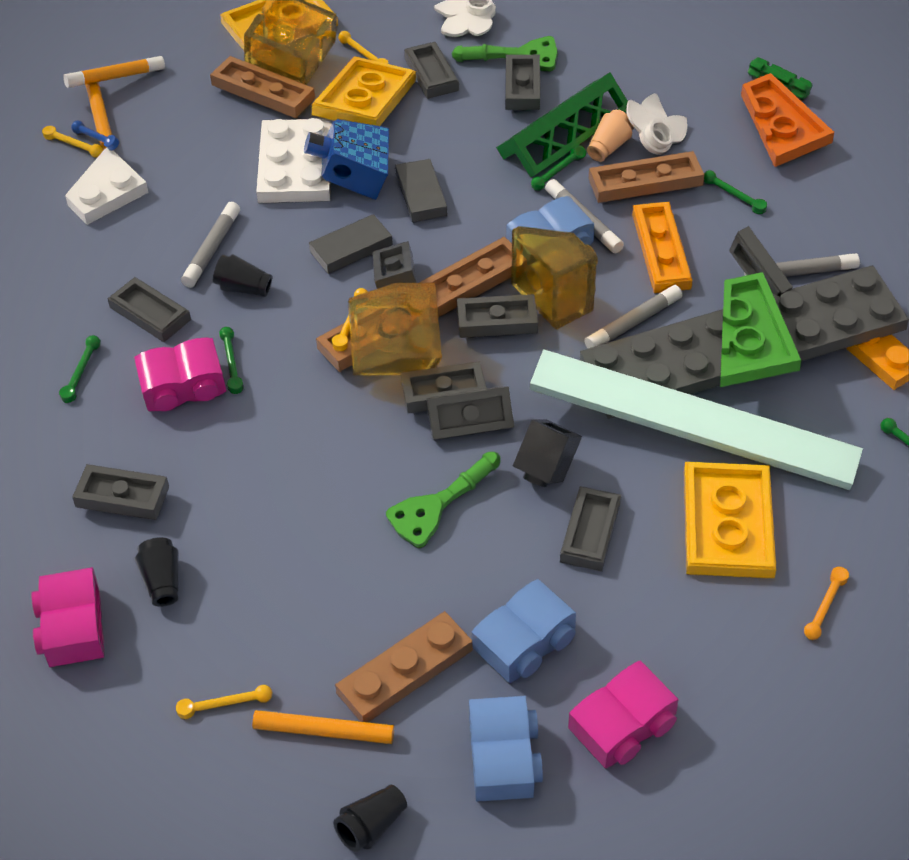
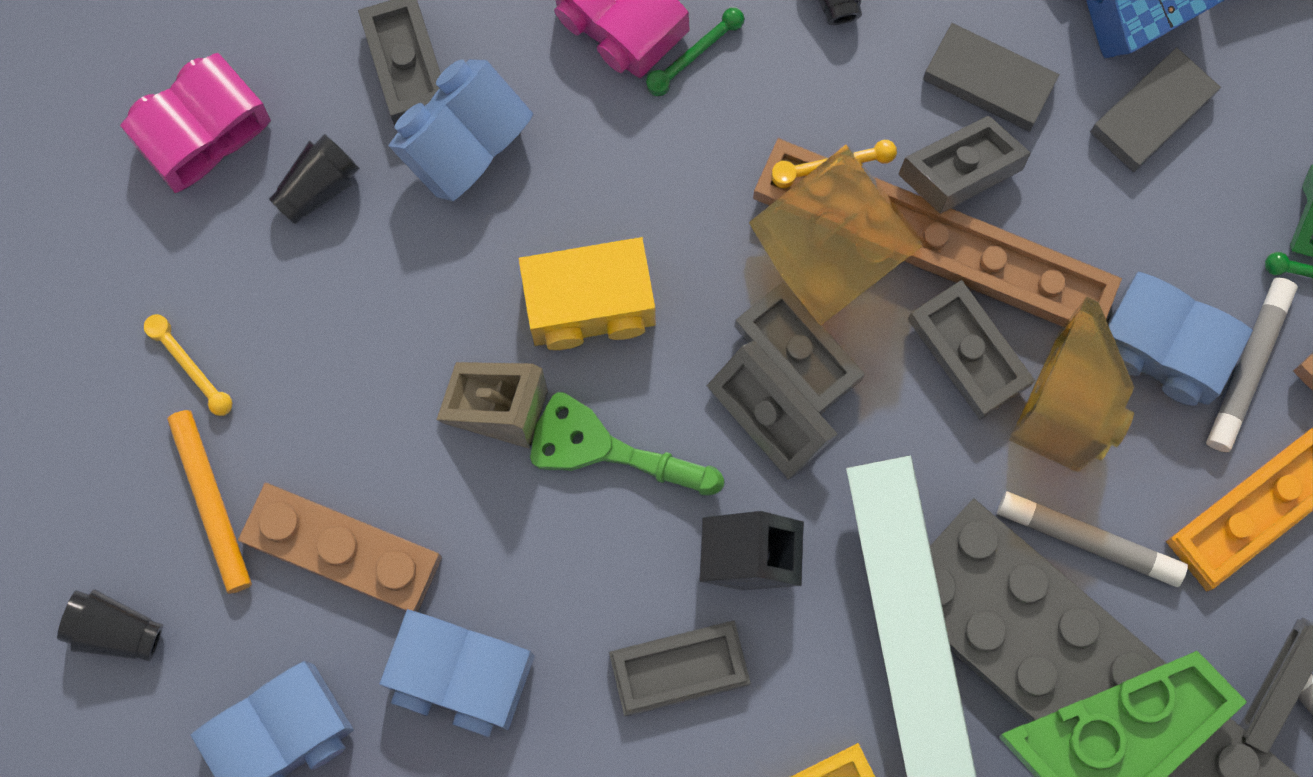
camera: 60 degrees right, 25 degrees up
(193, 476) = (460, 128): none -> medium blue brick
(339, 465) = (588, 293): none -> yellow brick
(372, 536) = (495, 400): none -> dark tan slope

